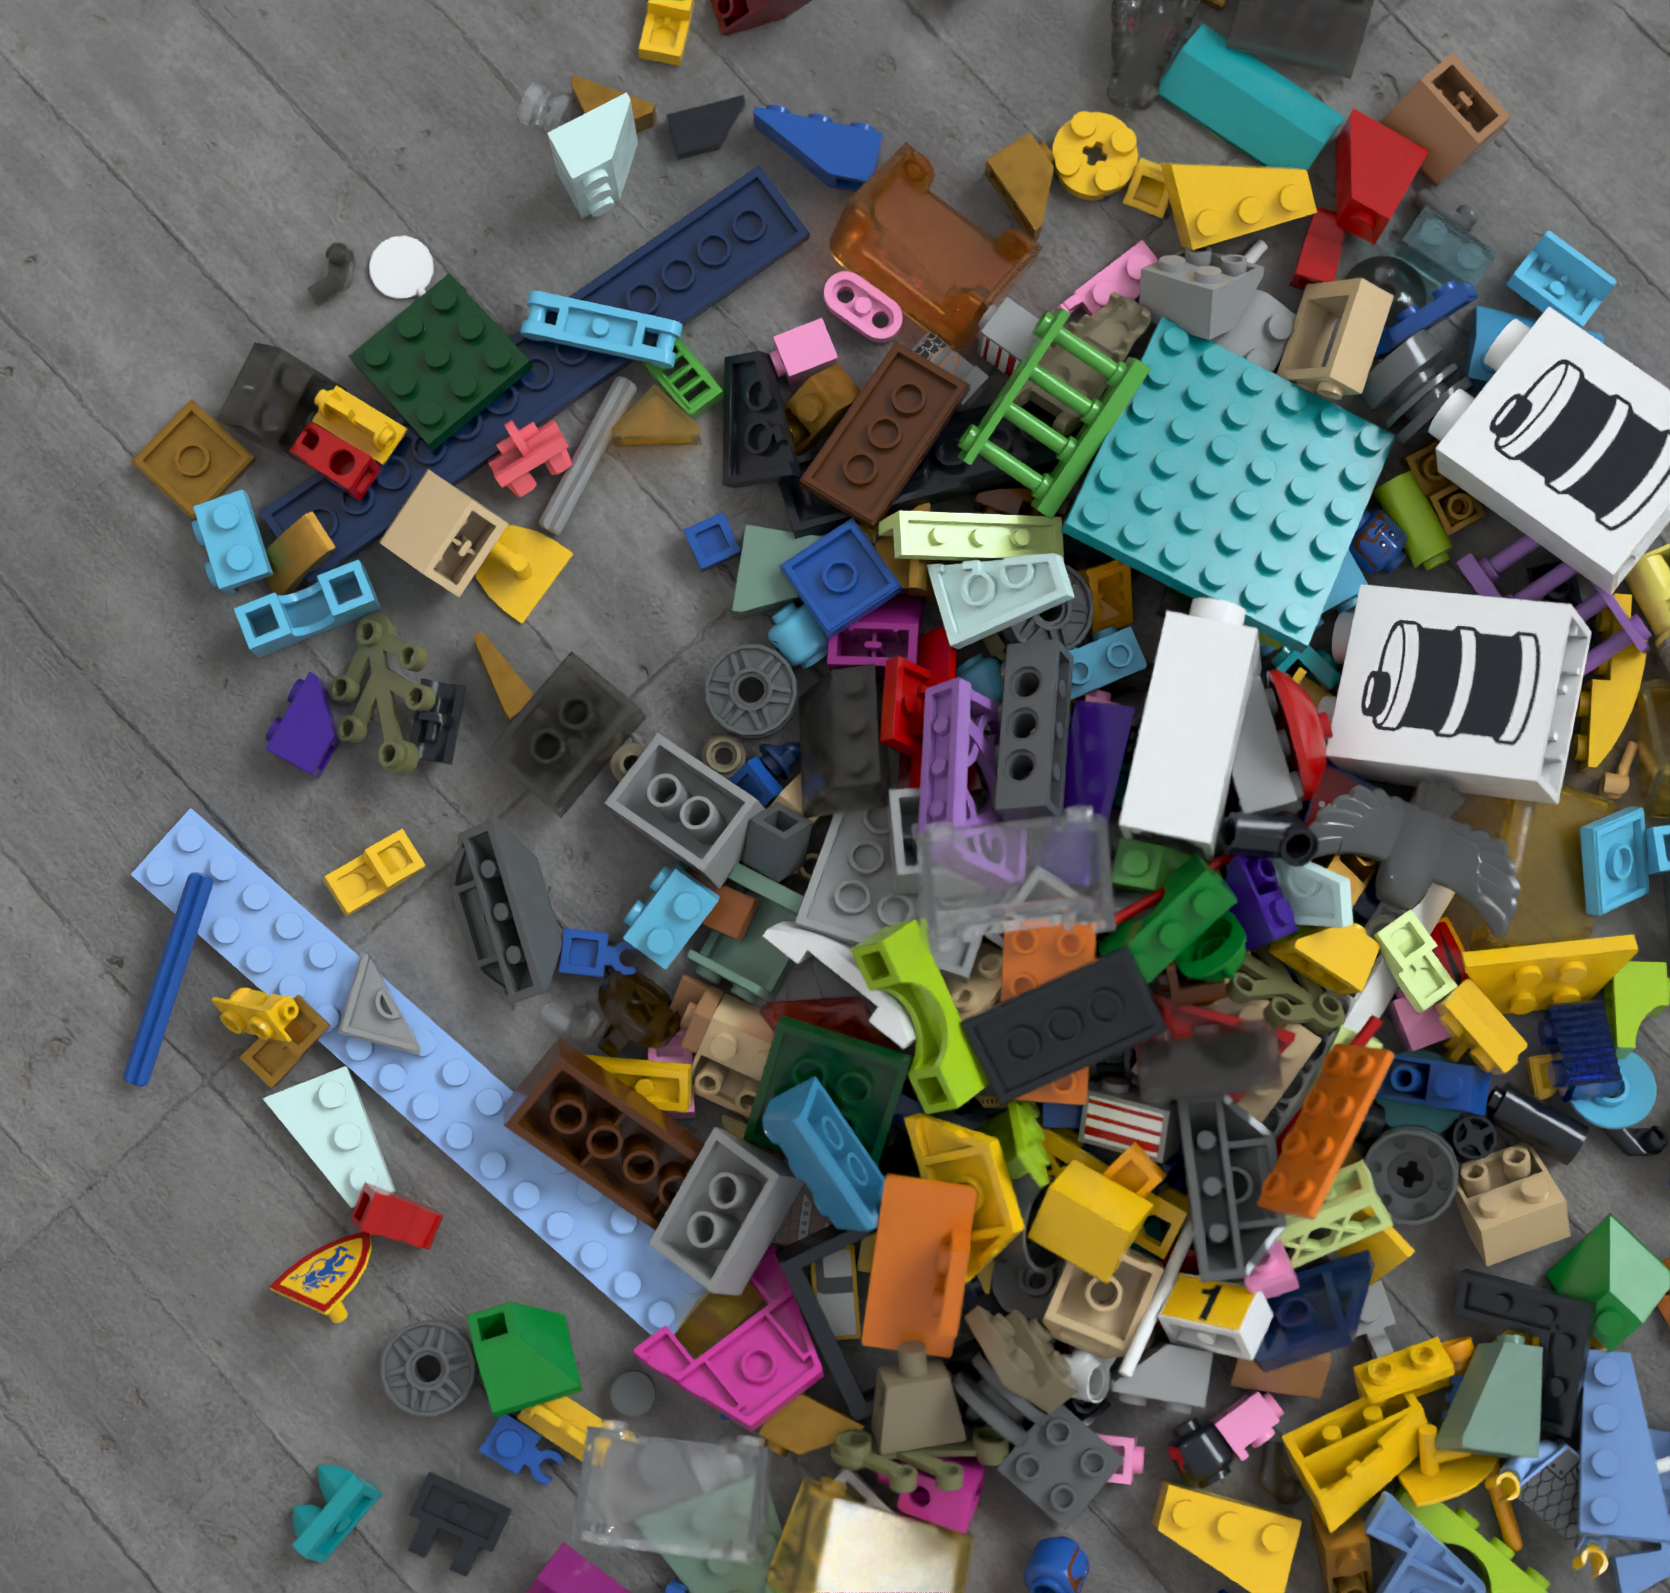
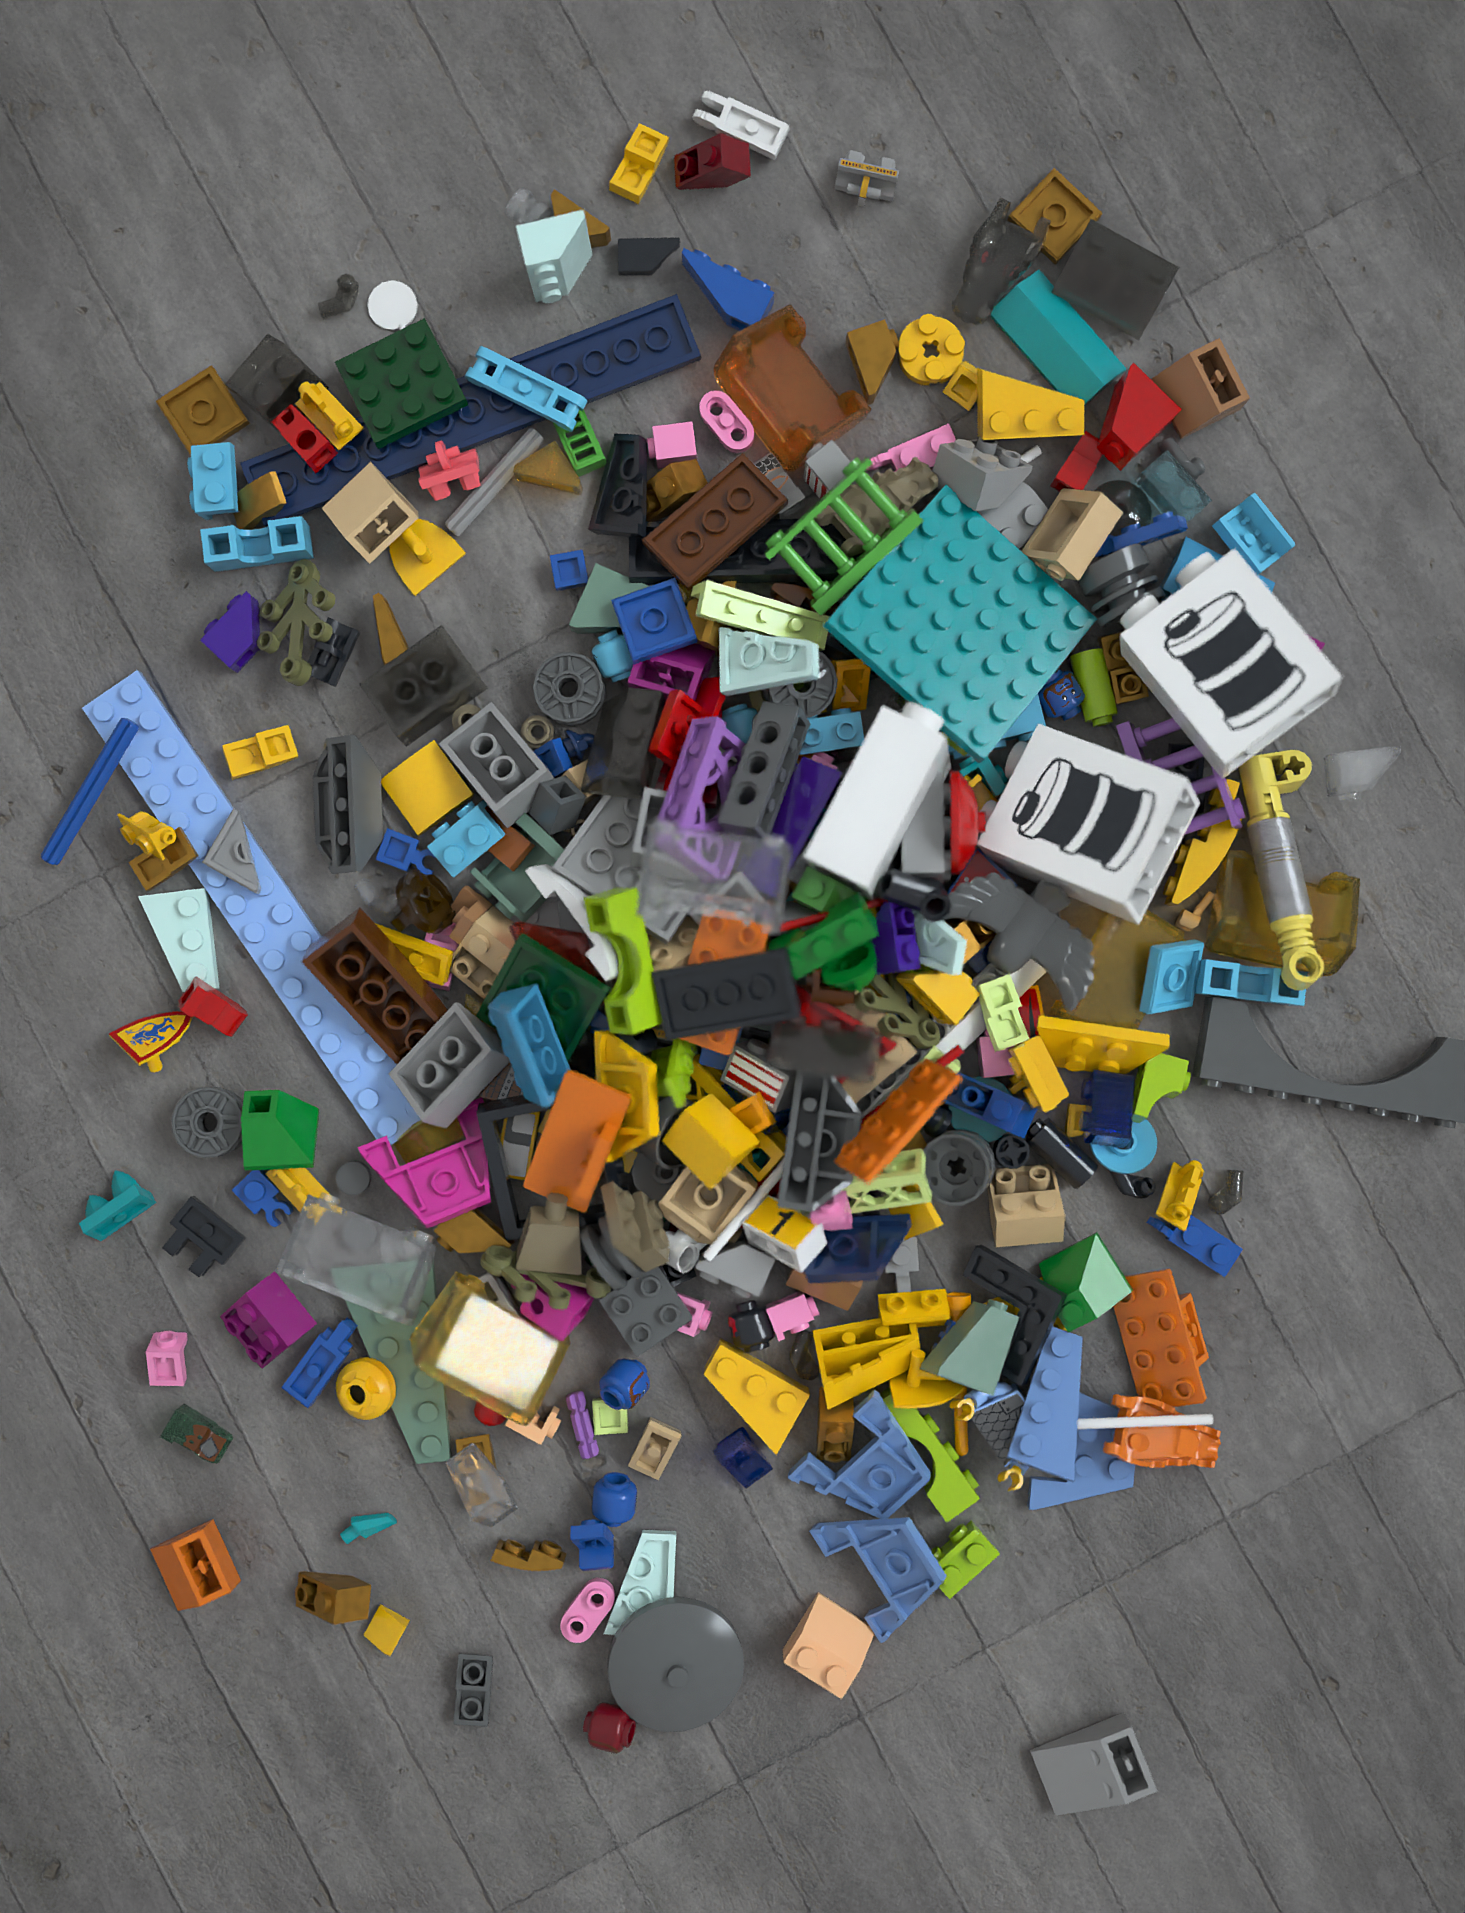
camera: 20 degrees right, 5 degrees up
(600, 864) = (426, 788): none -> yellow slope

